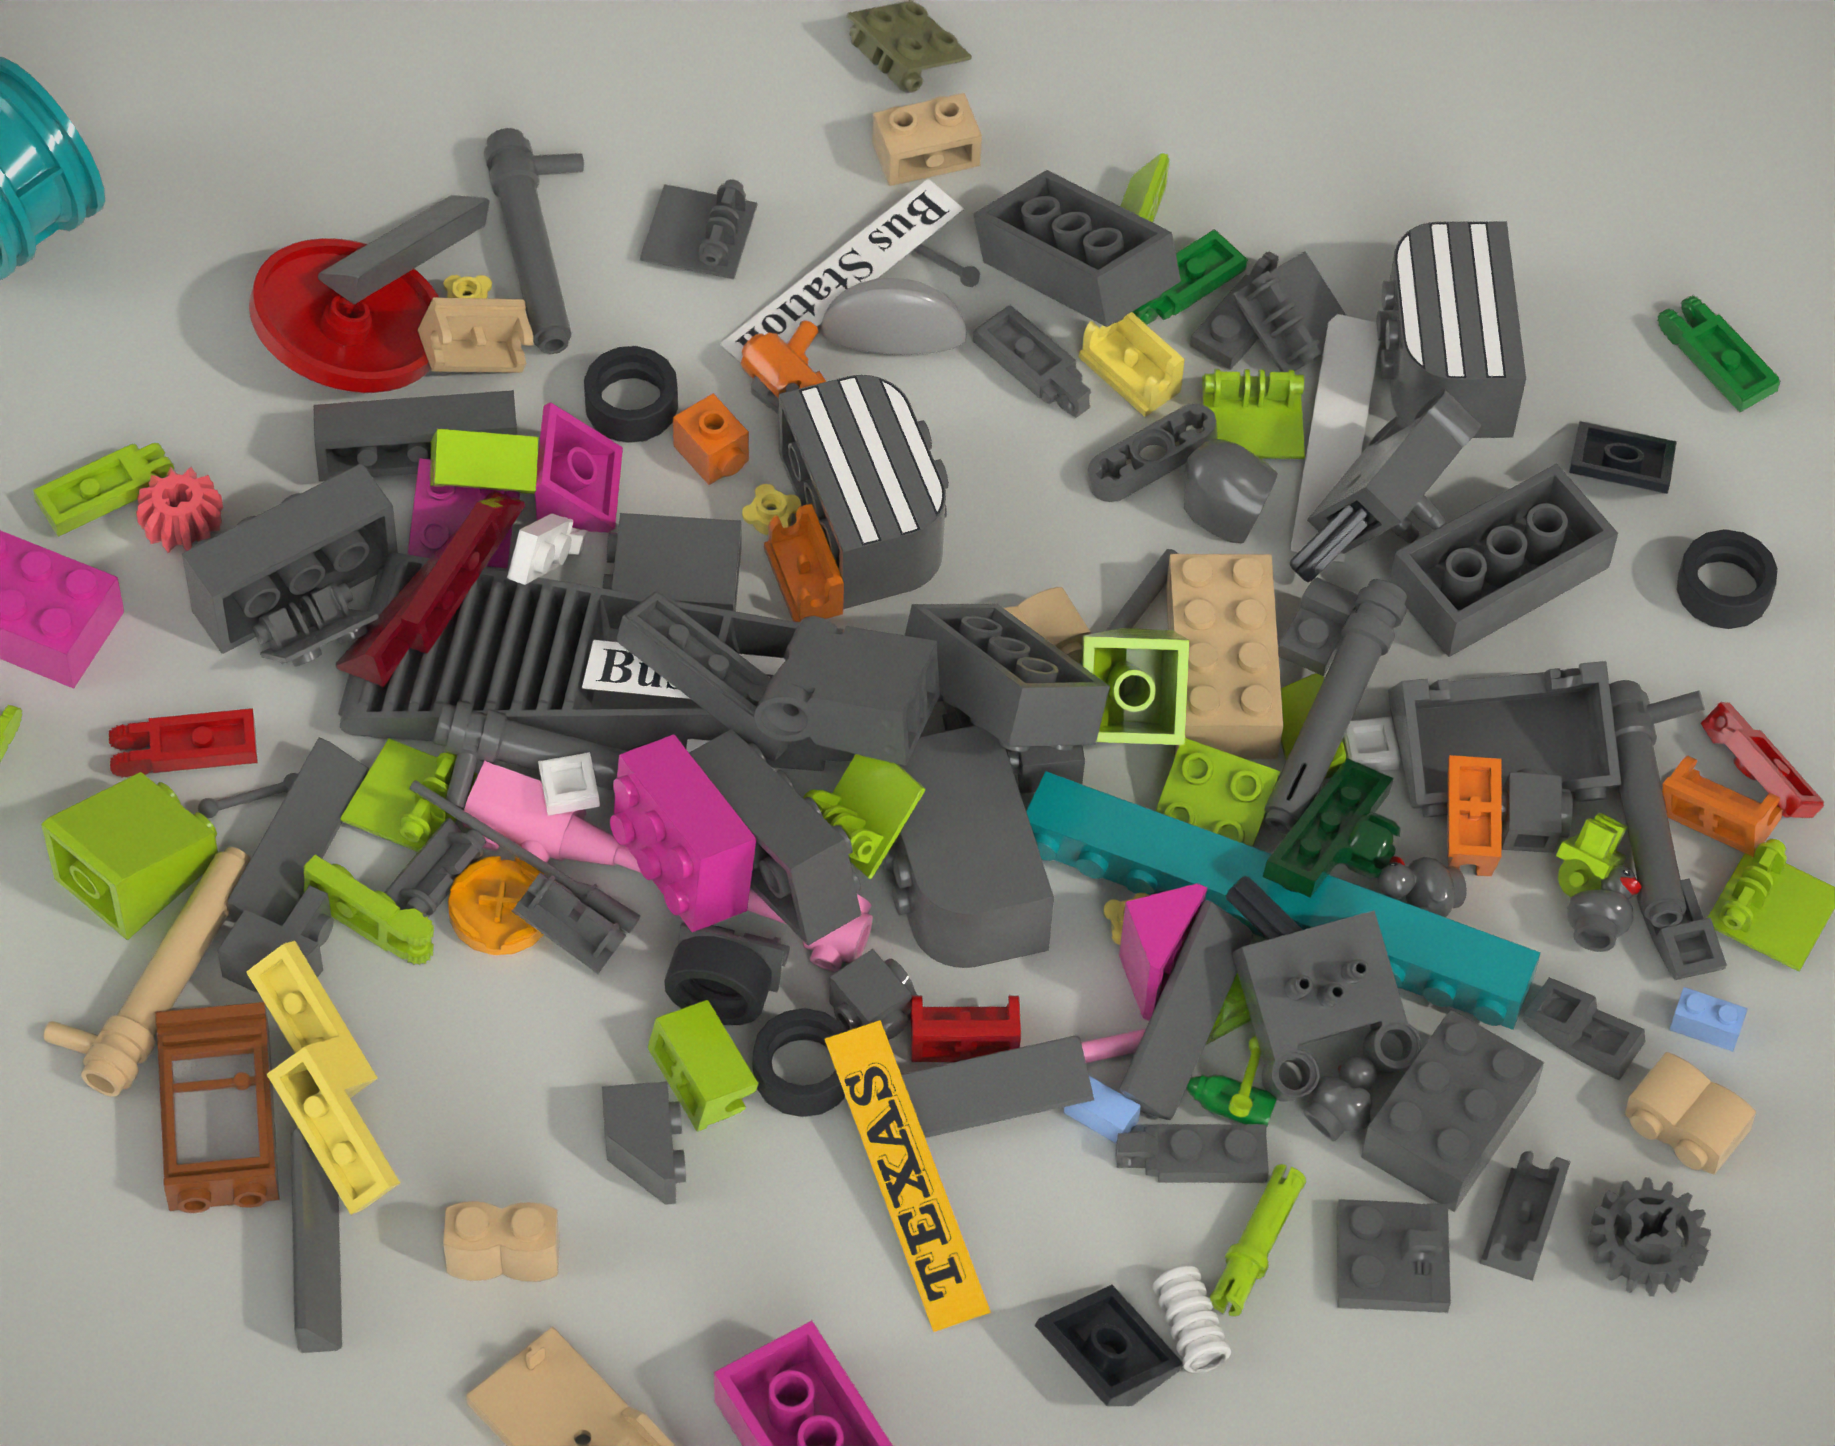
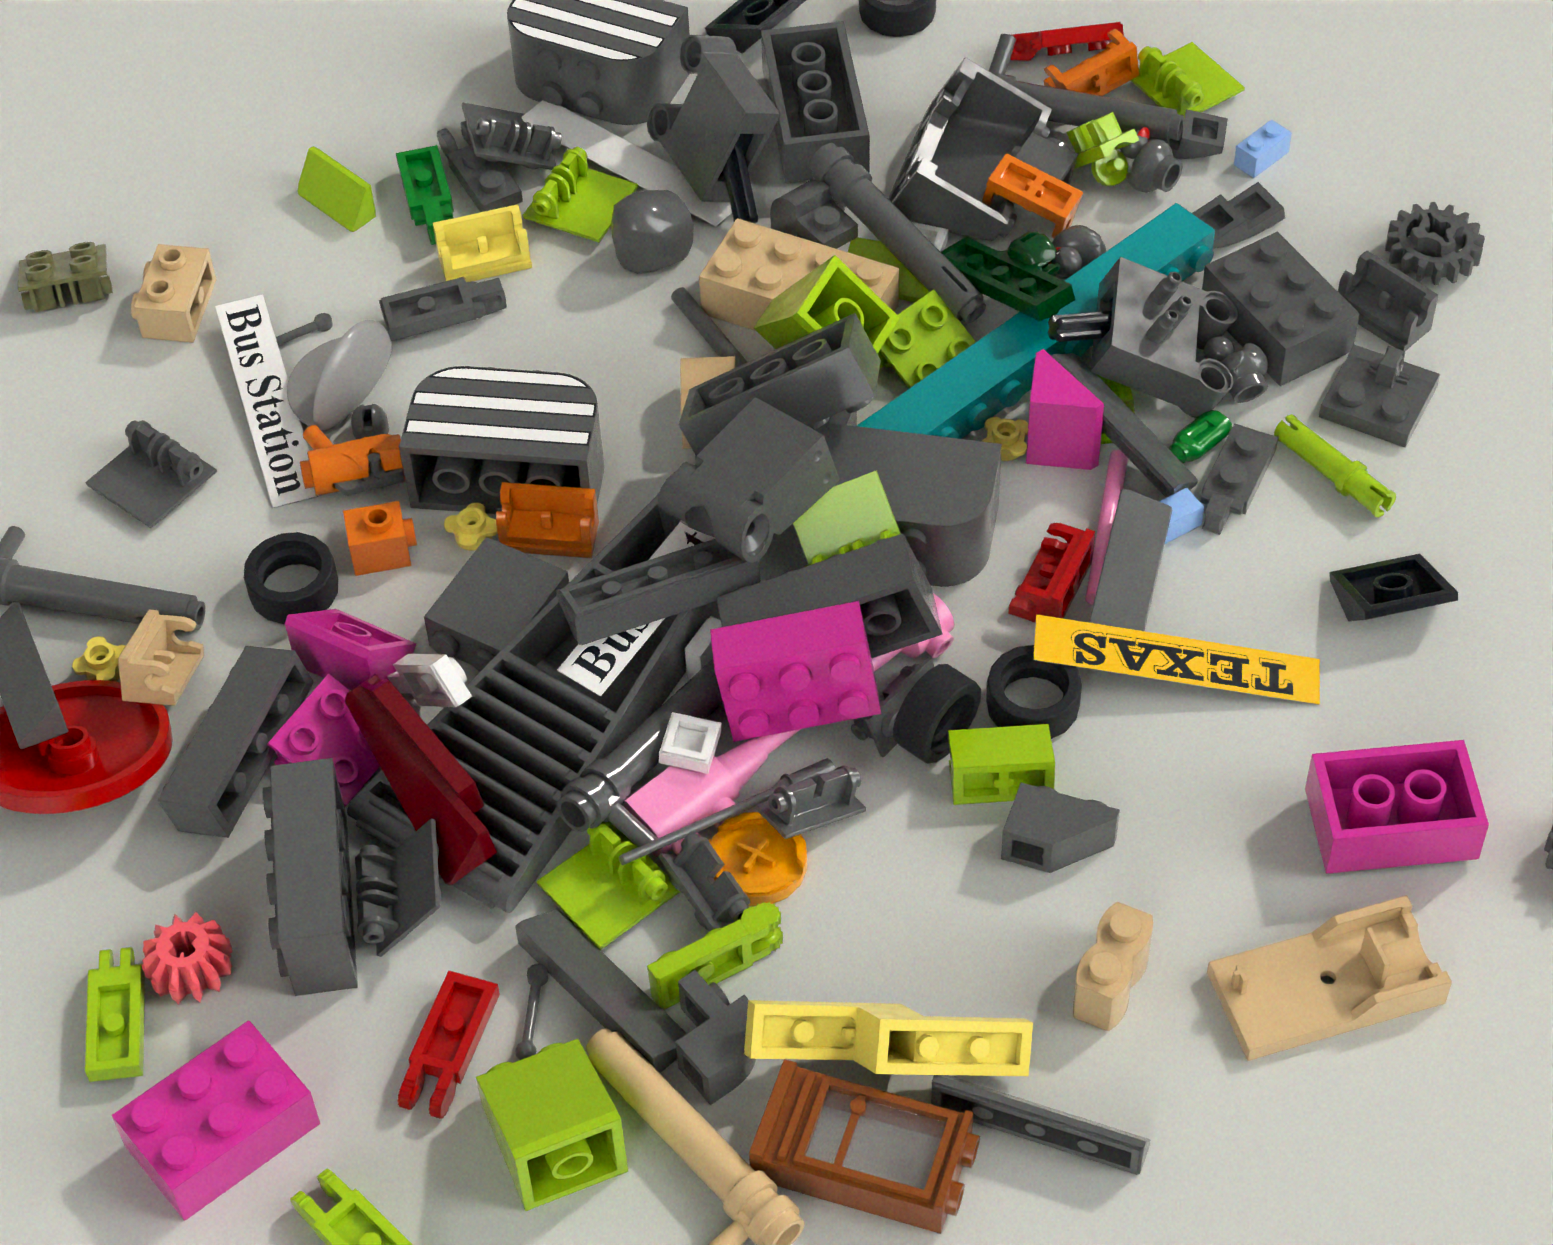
camera: 60 degrees left, 5 degrees down
(484, 460) = (316, 687): lime hinge -> none
(860, 363) = (369, 412): none -> dark grey hinge
(872, 992) = (996, 622): dark grey brick -> none
(1077, 248) = (371, 223): dark grey brick -> none
(1161, 433) = (588, 280): dark grey beam -> none
(1191, 1319) = (1389, 529): white piece -> none
(1241, 1103) = (1216, 425): lime hinge -> none
(1689, 1113) = (1341, 183): tan brick -> none

